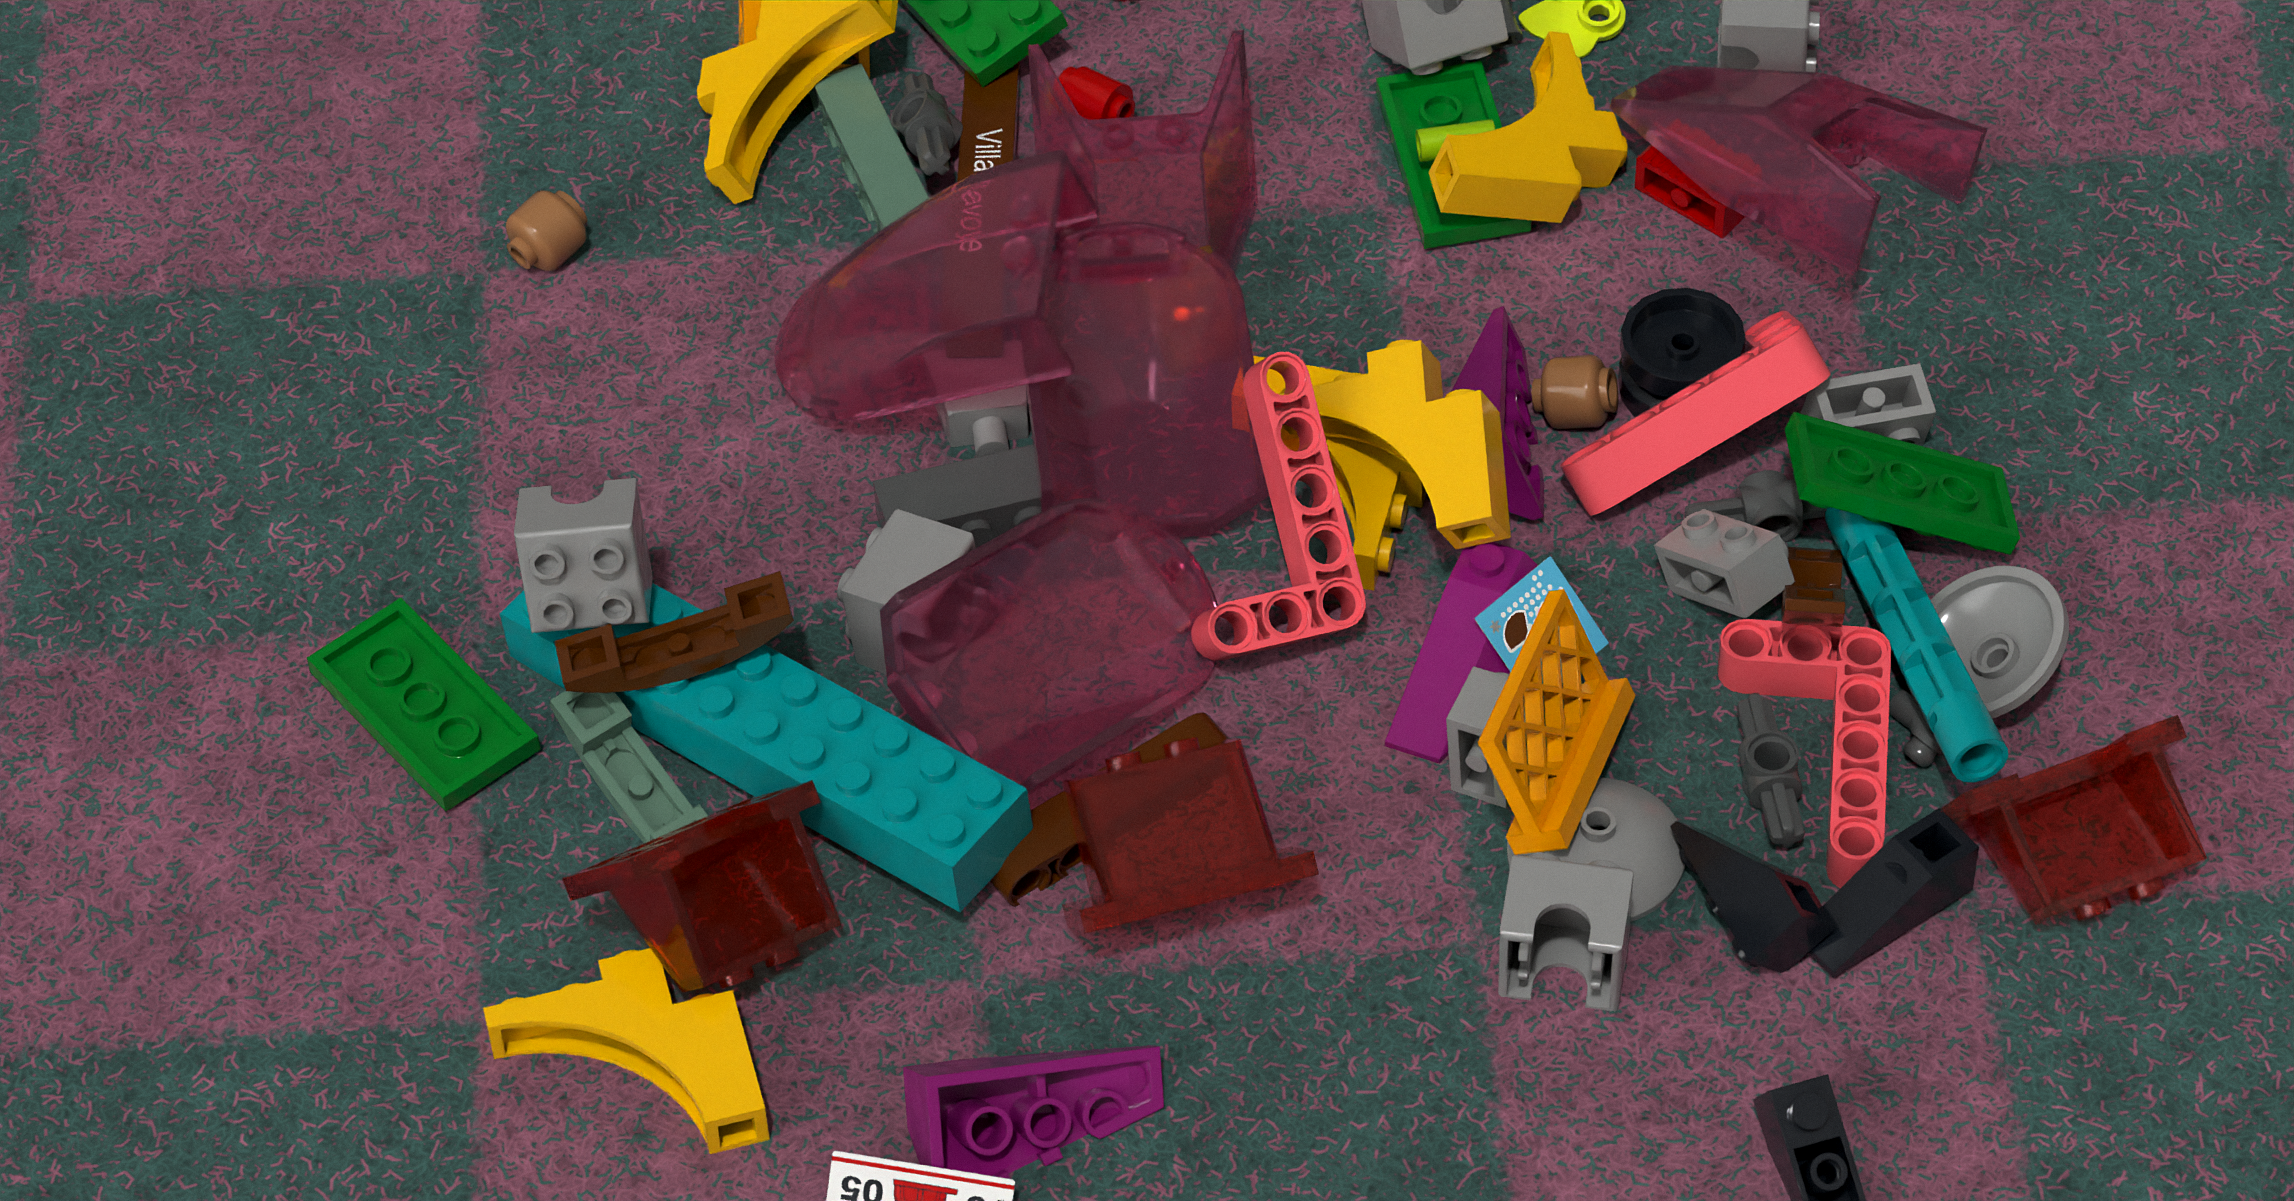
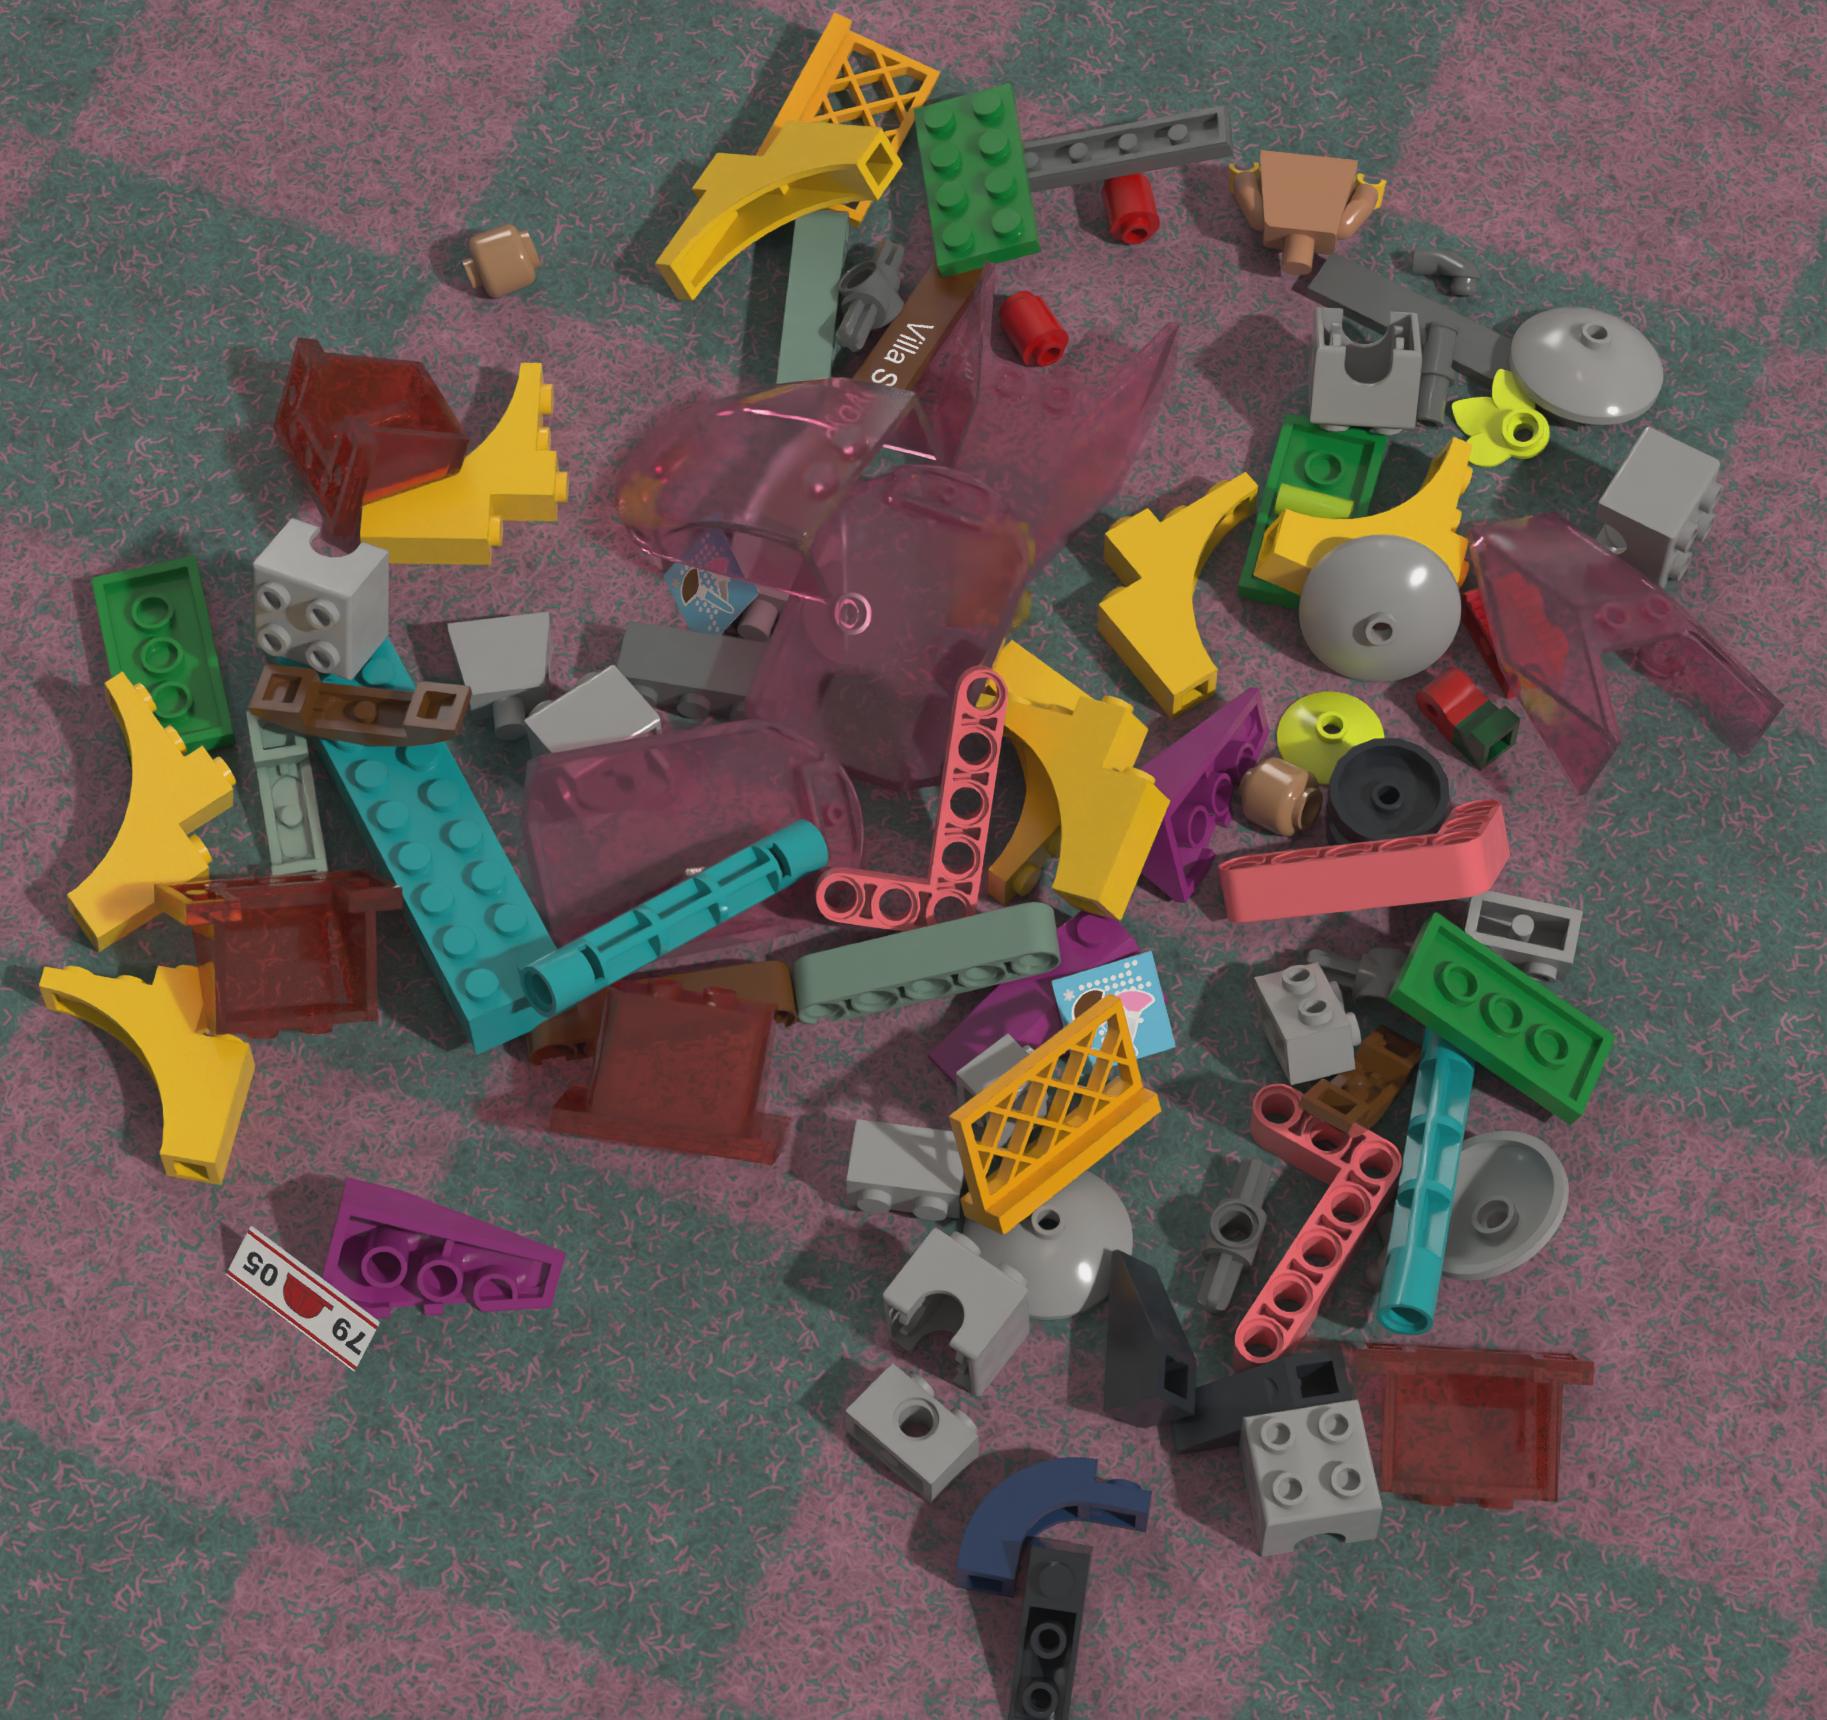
camera: 25 degrees right, 10 degrees up
(508, 415) = (364, 430): none -> clear red windscreen
(512, 823) = (166, 803): none -> yellow arch
(658, 427) = (502, 479): none -> yellow arch
(767, 547) = (505, 667): none -> light grey torso
(931, 433) = (708, 599): none -> medium azure sticker
(1089, 704) = (673, 918): none -> teal piece
(1345, 654) = (927, 963): none -> sand green beam
(1356, 280) = (1160, 564): none -> yellow arch
(1436, 838) = (905, 1170): none -> light grey brick
(1554, 175) = (1374, 583): none -> light grey dish
(1558, 332) = (1309, 746): none -> neon yellow dish
(1605, 1082) = (923, 1462): none -> light grey brick
(1701, 261) = (1468, 717): none -> leg
(1739, 1059) = (1033, 1502): none -> dark blue arch
(1972, 934) = (1309, 1475): none -> light grey piece

